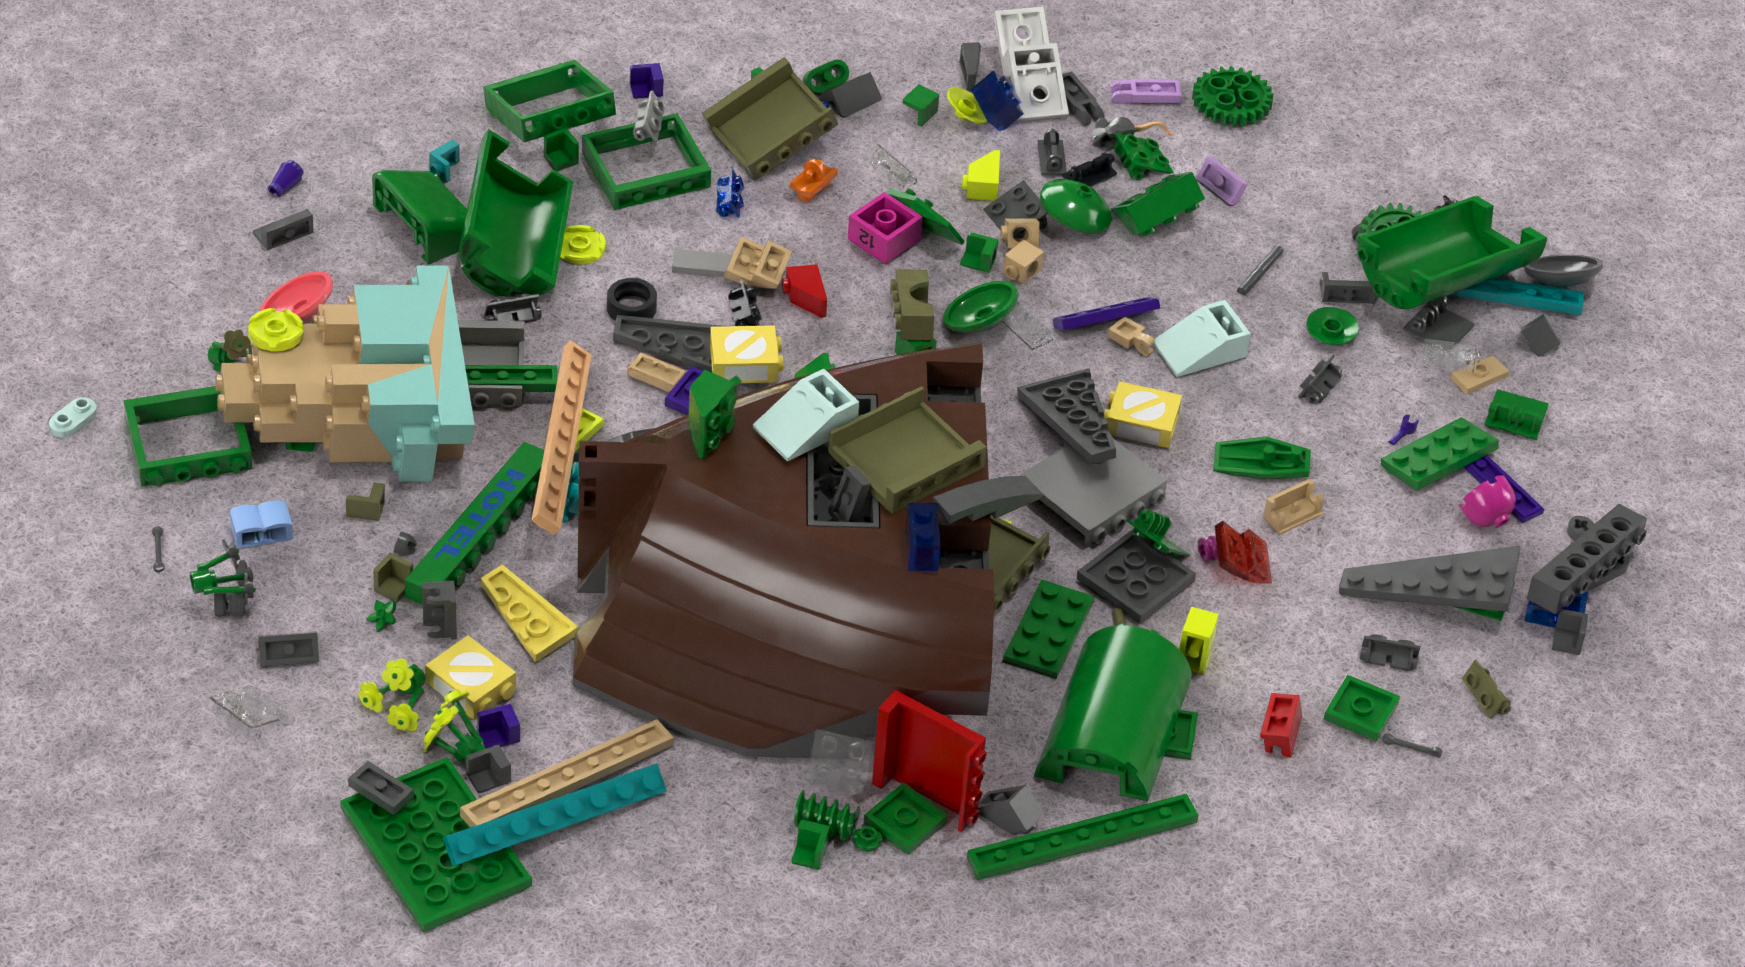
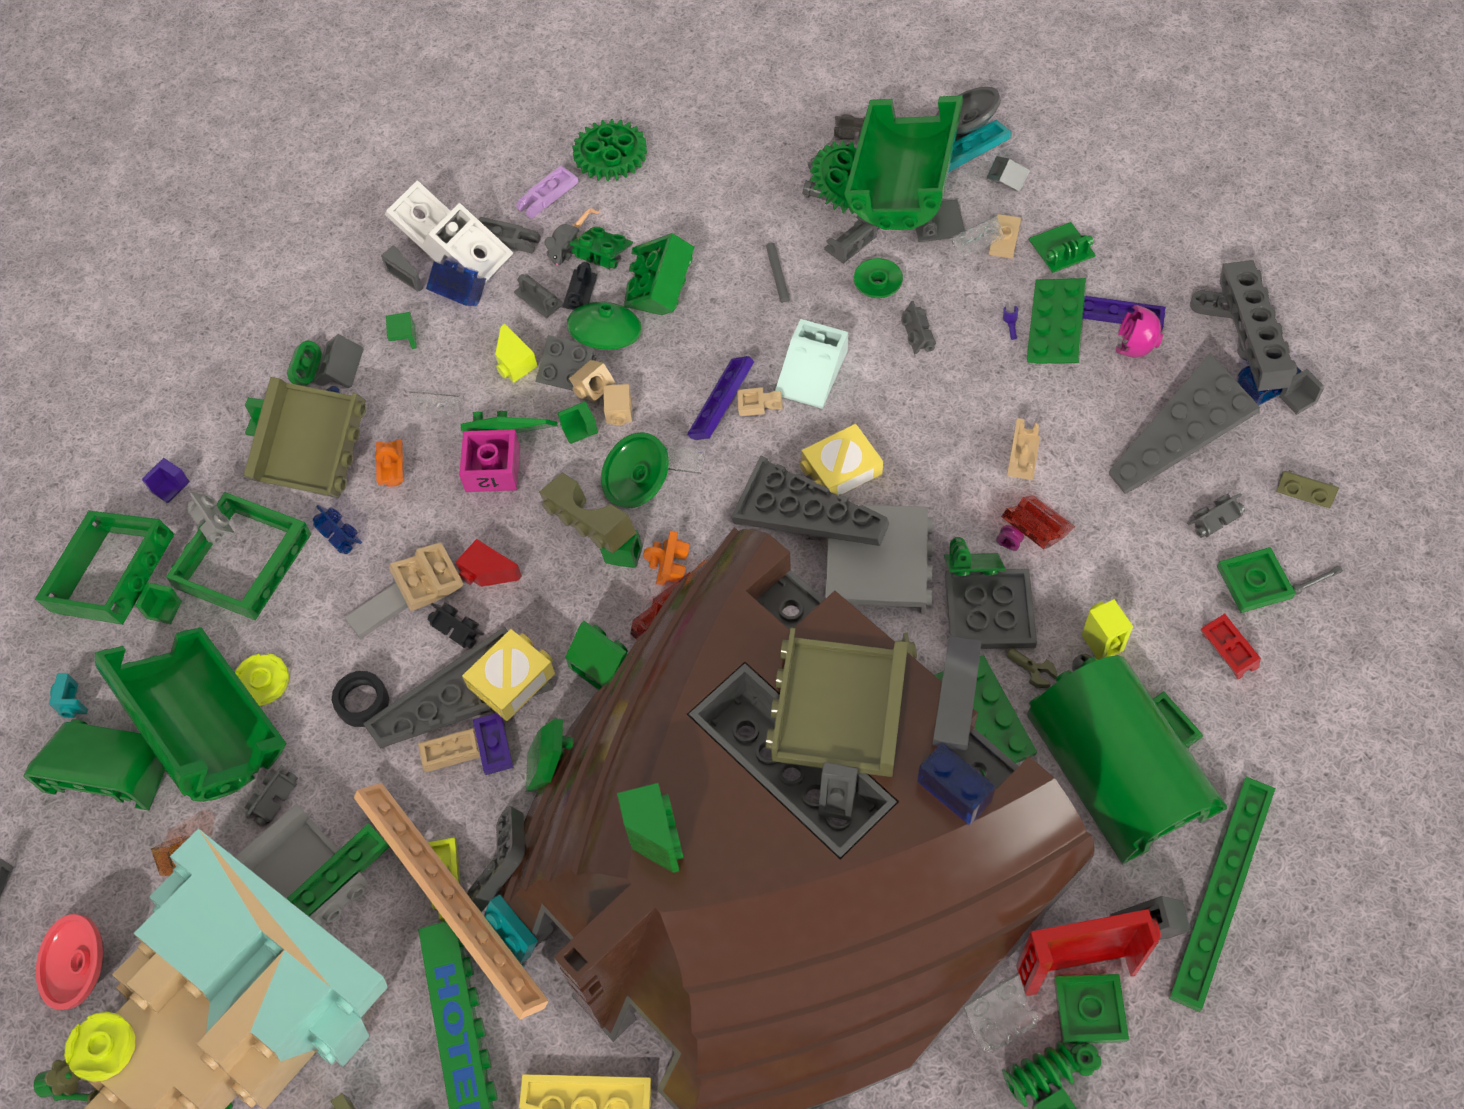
camera: 35 degrees left, 15 degrees up
(807, 415) = (728, 746): light aqua slope -> none
(965, 105) = (435, 304): neon yellow dish -> none
(1221, 181) = (678, 222): lavender hinge -> none
(1262, 458) = (953, 427): green piece -> none

